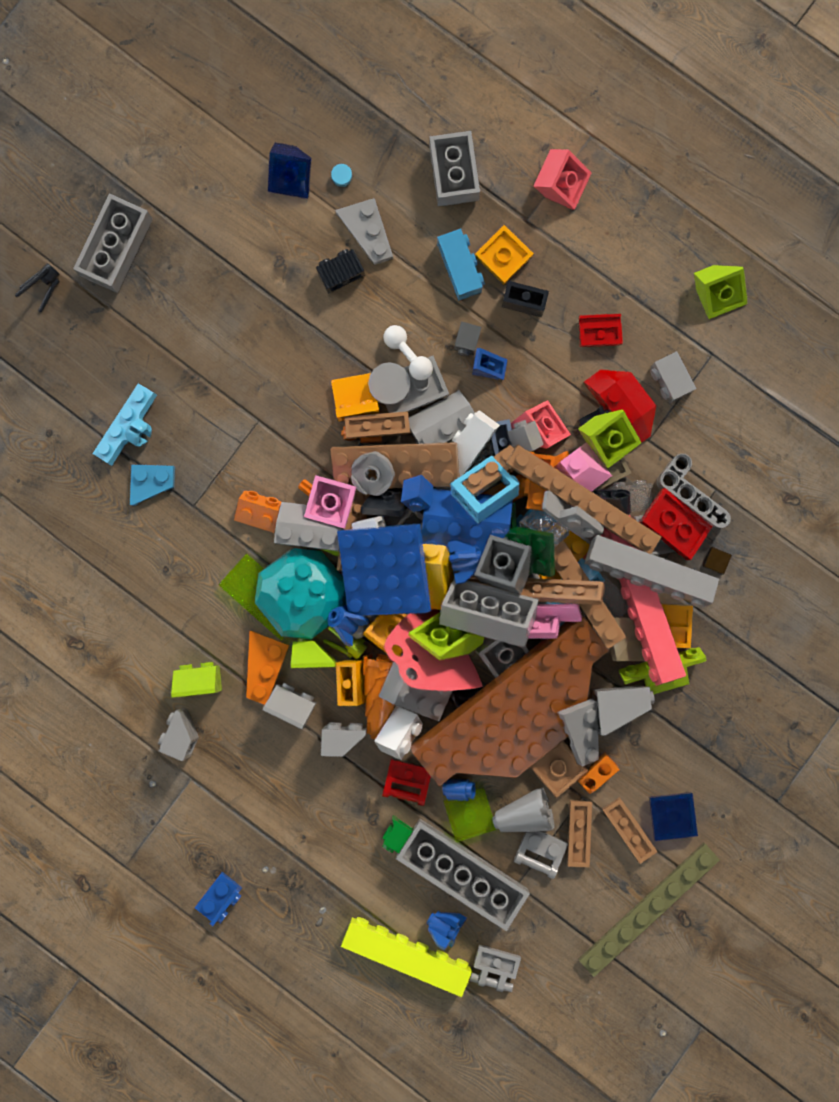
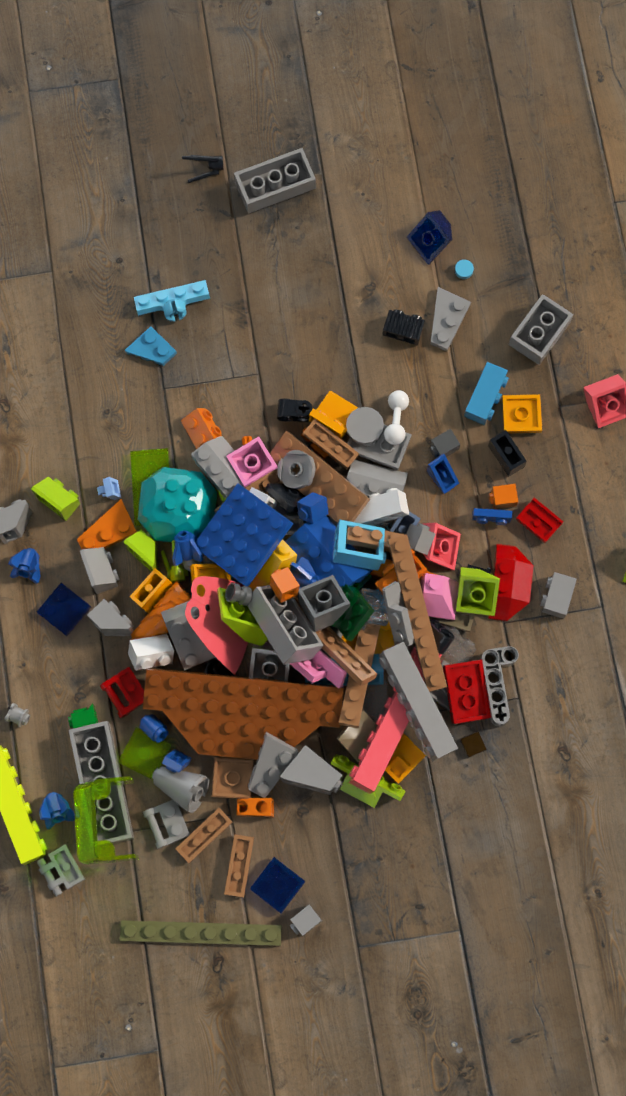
camera: 45 degrees right, 10 degrees down
(226, 758) = (26, 565): none -> blue brick
(233, 631) = (110, 489): none -> light blue tile
(292, 763) = (63, 609): none -> clear blue plate
(316, 426) = (292, 410): none -> black piece
(341, 883) = (17, 715): none -> light grey brick
(430, 624) = (238, 594): none -> dark grey wheel
(460, 581) = (284, 584): none -> orange brick
(466, 897) = (88, 847): none -> clear neon green windscreen
(504, 798) = (176, 761): none -> blue plate
(554, 337) = (503, 496): none -> orange brick
(566, 357) = (482, 516): none -> blue plate
(721, 823) = (305, 921): none -> light grey brick

